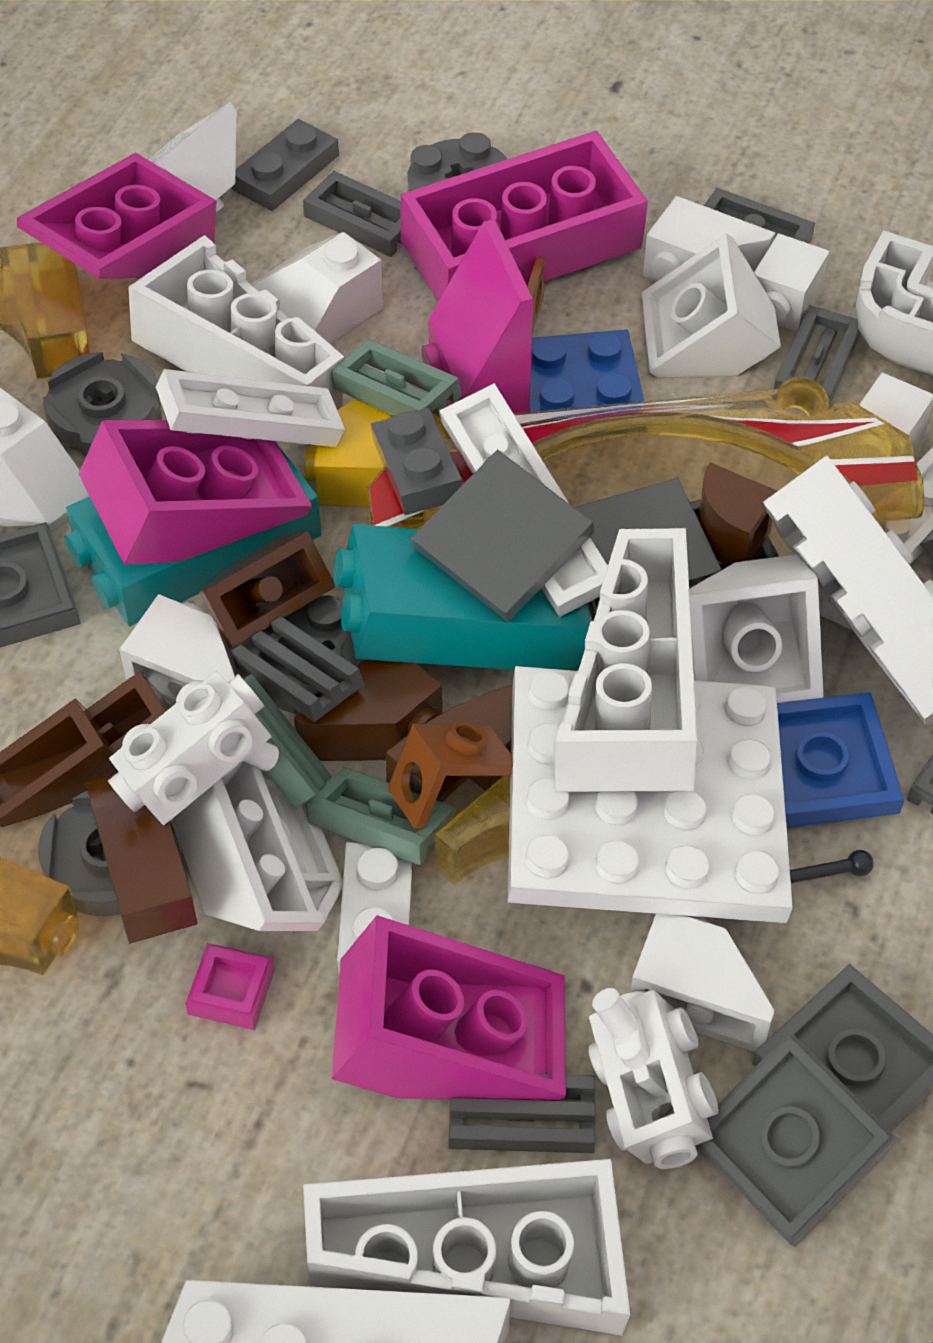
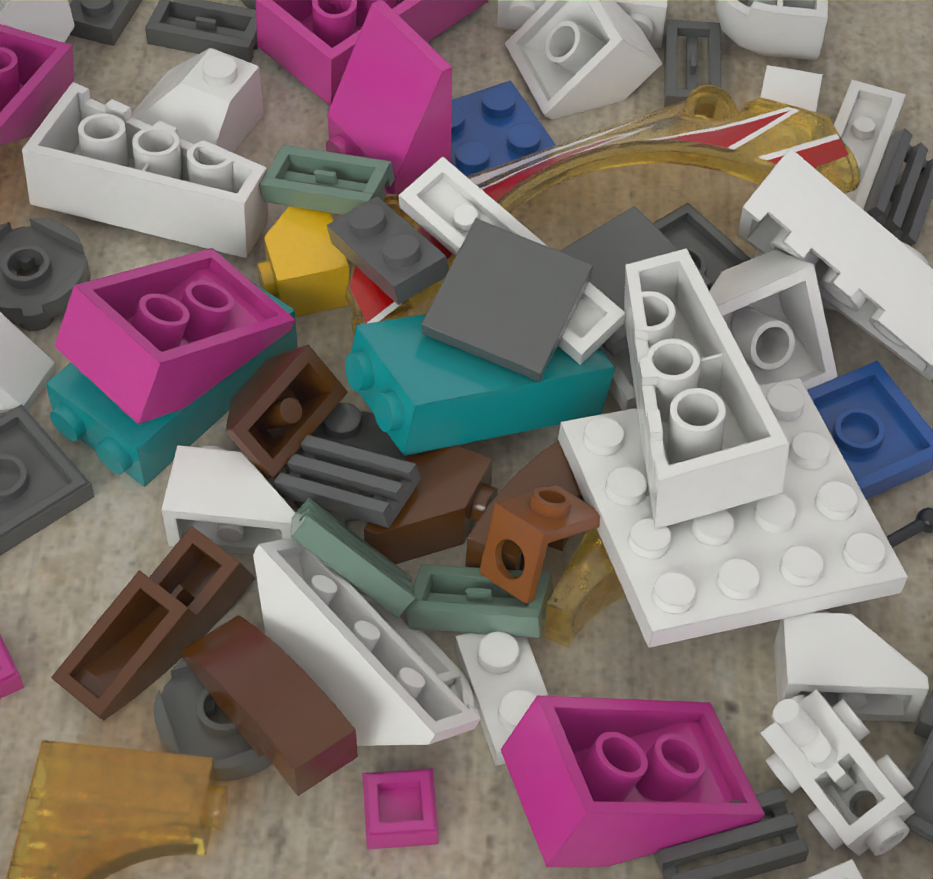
camera: 20 degrees left, 0 degrees up
(192, 746) = (295, 583): white brick -> none
(249, 408) = (202, 239): white plate -> none
(733, 514) = (701, 223): reddish brown brick -> none

